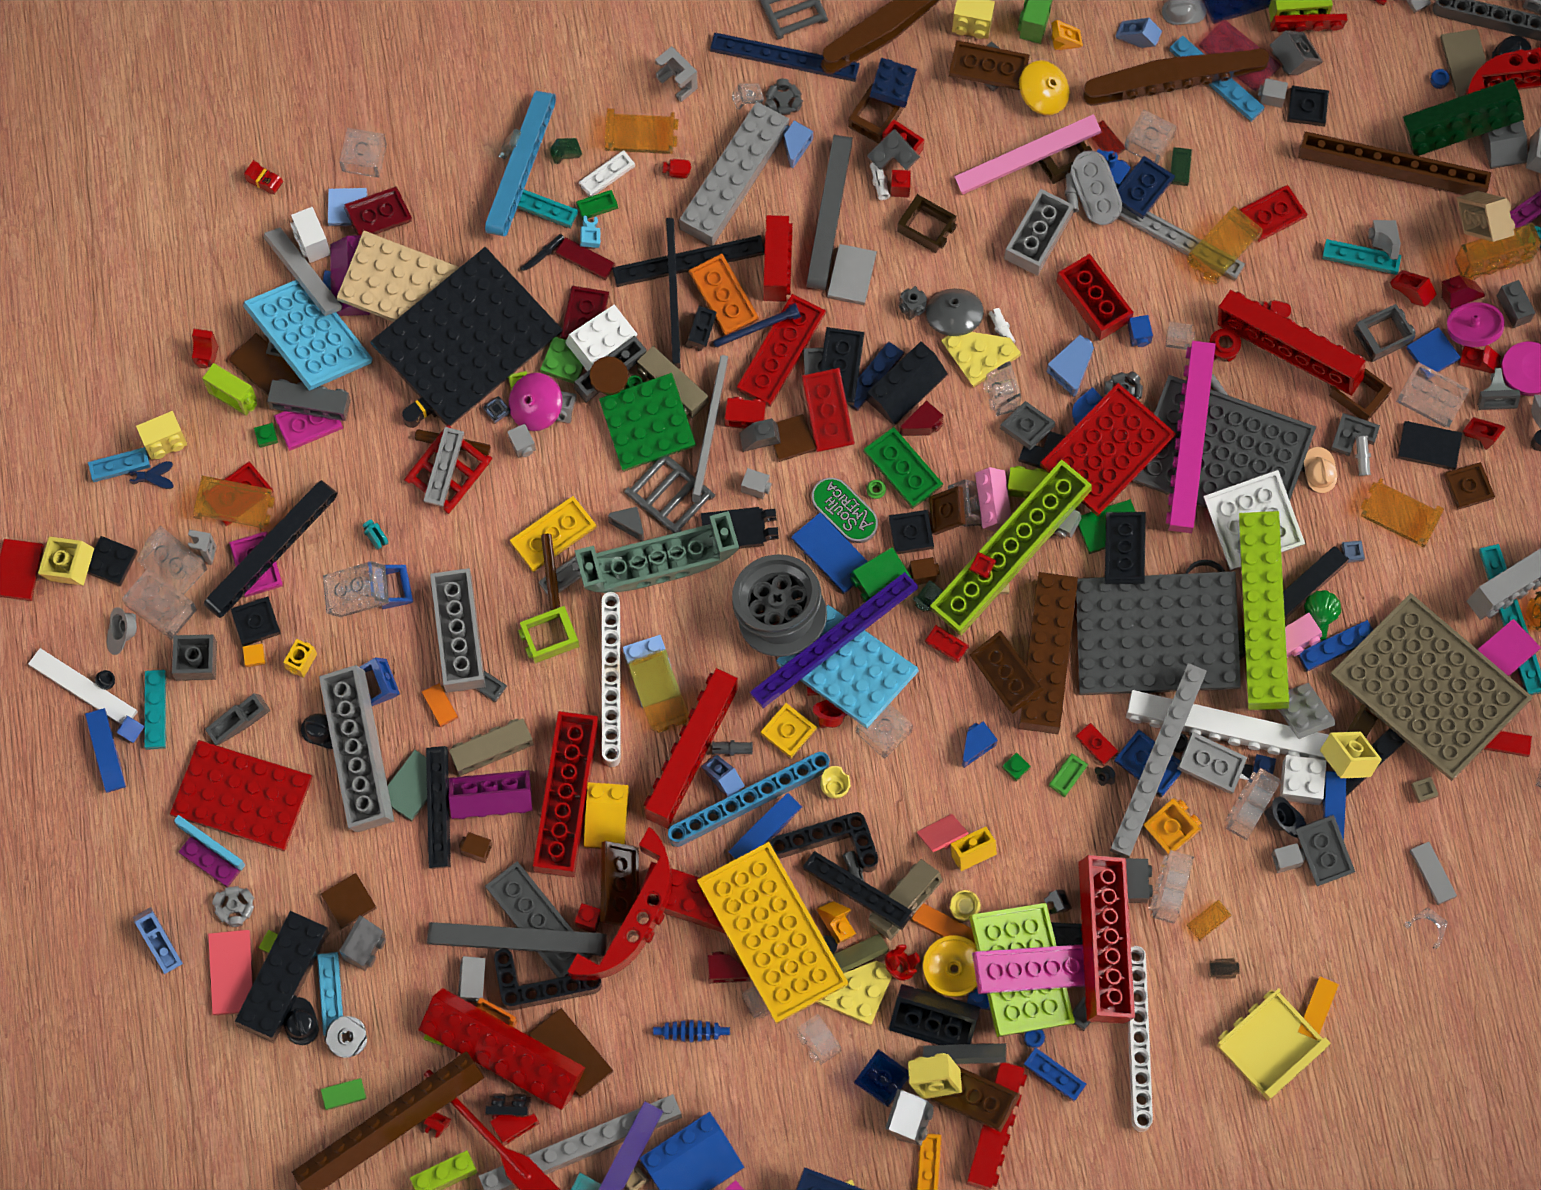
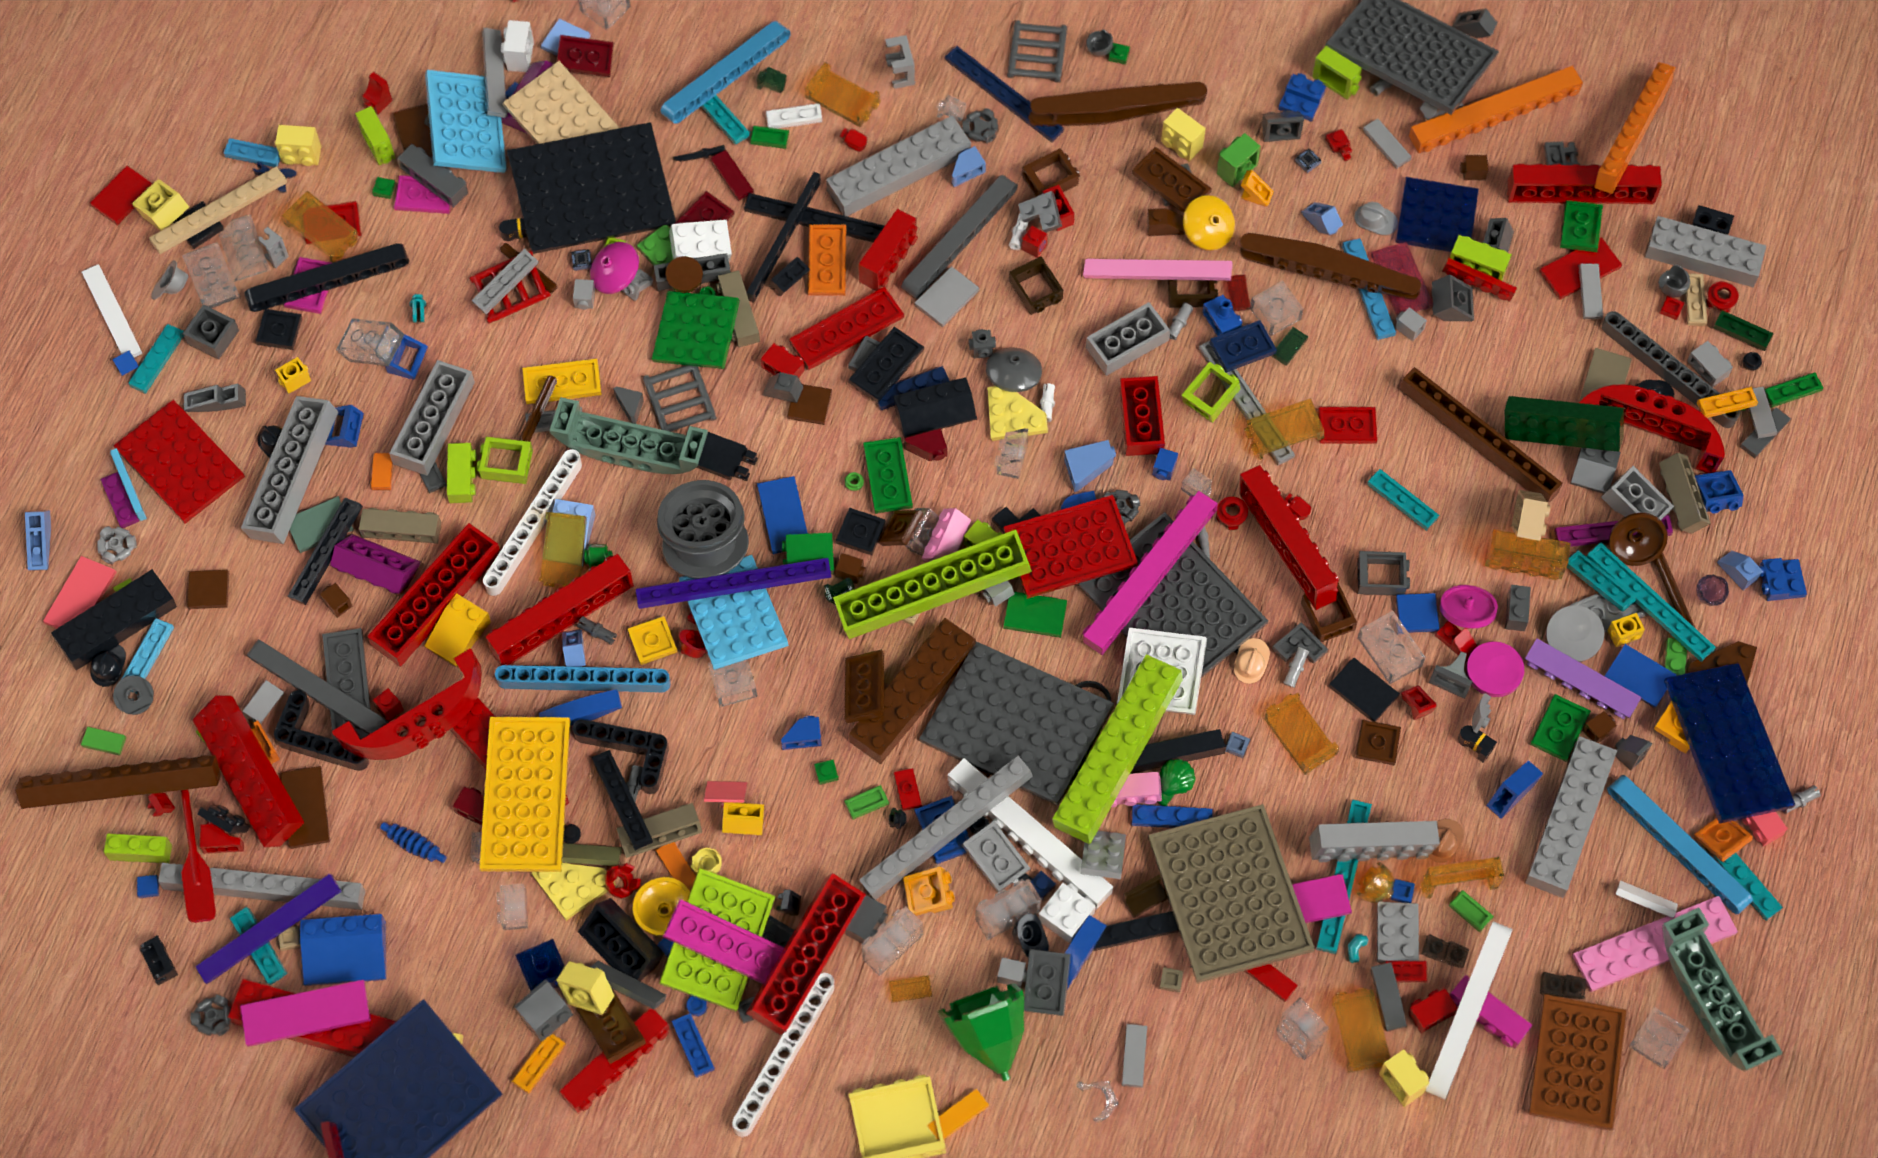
camera: 30 degrees right, 5 degrees down
(105, 679) = (132, 314): black plate -> none
(105, 750) = (95, 369): blue slope -> none
(124, 537) = (218, 210): none -> tan plate
(254, 655) = (261, 356): light orange tile -> none
(363, 944) = (193, 626): flat silver slope -> none
(510, 143) = (726, 50): clear light blue tile -> none
(515, 668) = (461, 473): none -> lime brick
(589, 233) = (748, 156): medium azure plate -> none
(618, 881) = (435, 676): reddish brown tile -> none
(690, 679) = (596, 554): none -> green head
(709, 431) = (743, 361): light grey tile -> none
(756, 483) = (754, 425): light grey brick -> none
(791, 313) = (872, 300): dark blue piece -> none
(828, 410) = (852, 394): red tile -> none
(834, 782) = (662, 702): light yellow hair -> none
(835, 919) = (591, 818): light orange slope -> none
(845, 510) = (816, 485): tile -> none
(893, 82) = (1079, 156): dark blue plate -> none
(946, 643) = (831, 638): red plate -> none
(982, 565) = (896, 585): red tile -> none
(1003, 107) = (1164, 222): none -> reddish brown slope
(1027, 425) = (1016, 493): dark grey plate -> none
(1096, 187) = (1200, 326): light grey tile -> none
(1125, 547) = (1033, 636): black tile -> none
(1140, 262) = (1201, 407): none -> lime window
(1224, 968) = (896, 1036): clear smoke brick -> none
(1301, 913) = (988, 1026): none -> green piece
(1308, 106) = (1436, 350): black tile -> none
(1350, 754) = (1117, 911): light yellow brick -> none
(1385, 236) = (1433, 492): light grey arch -> none
(1414, 287) = (1433, 548): red arch -> none
(1439, 78) = (1571, 384): blue tile -> none
(1460, 291) = (1474, 572): dark red slope -> none

